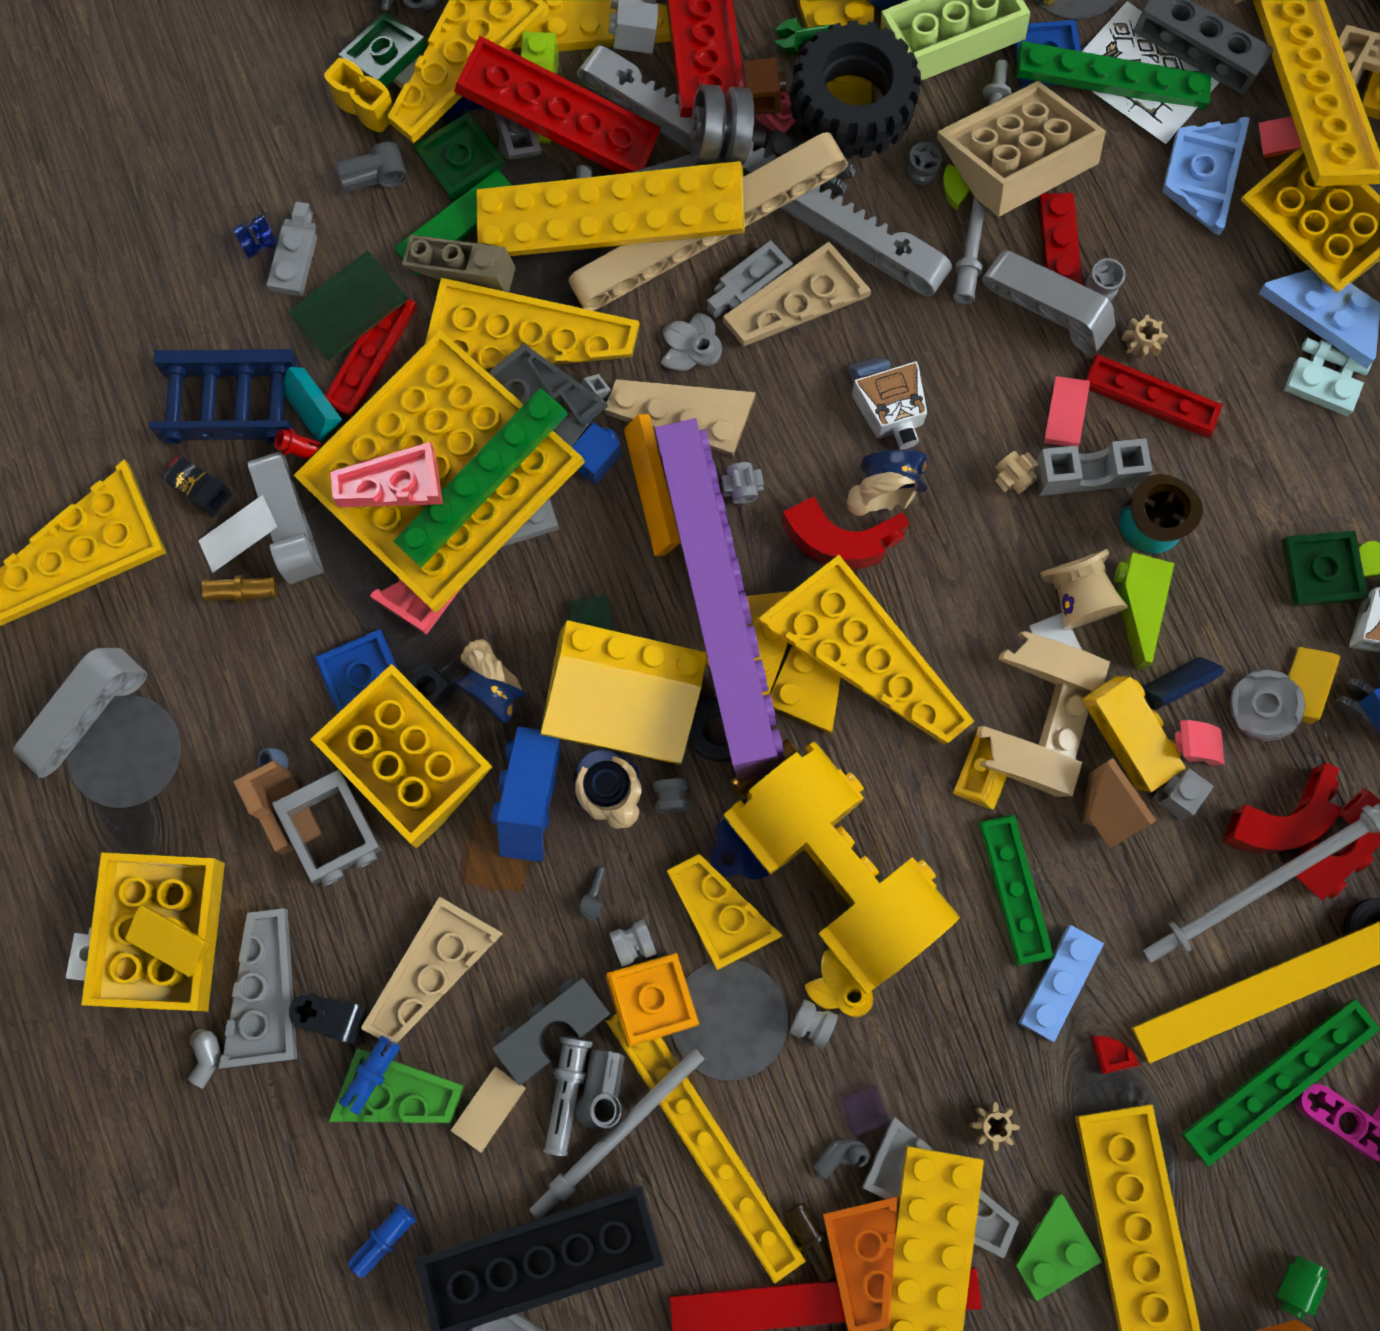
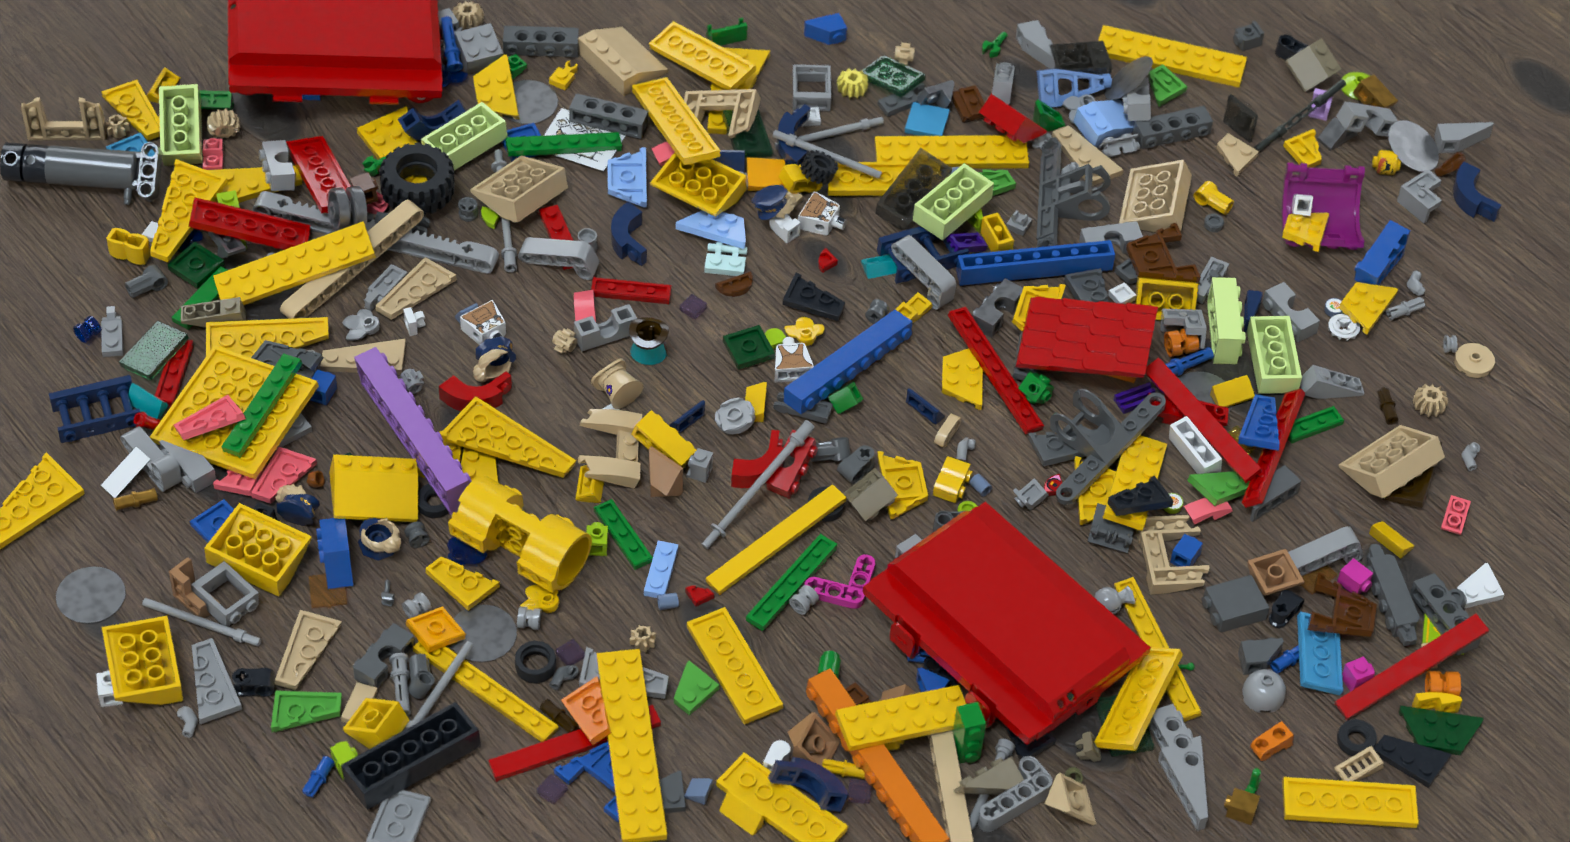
camera: 20 degrees left, 25 degrees down
(76, 707) = (59, 573): light grey beam -> none
(166, 940) = (154, 653): yellow slope -> none
(196, 485) = (92, 456): black leg -> none
(330, 908) = (237, 634): none -> light grey bar
(346, 557) = (194, 468): none -> light grey slope
(370, 1074) = (287, 696): blue pin -> none
(385, 49) = (136, 219): dark green plate -> none
(433, 1222) = (342, 753): none -> lime brick
(484, 606) = (283, 469): none -> coral wing
(501, 1170) = (376, 721): none -> yellow slope
(544, 635) = (315, 479): none -> dark orange hinge
(652, 485) = (359, 394): light orange tile -> none
(777, 362) = (413, 321): none -> white tile
(827, 1130) = (532, 648): none -> black tyre
(967, 906) = (599, 537): none -> lime brick
(1056, 1056) = (667, 601): none -> sand blue hinge
(1144, 337) = (617, 263): tan gear -> none
(1144, 589) = (652, 377): lime slope -> none
(1161, 286) = (623, 224): none -> dark blue arch
(1200, 742) = (701, 437): coral slope -> none
(1249, 457) = (693, 306): none -> clear purple tile
(1293, 1128) = (802, 601): none -> light grey wheel
(1331, 434) = (735, 286): none -> reddish brown tile

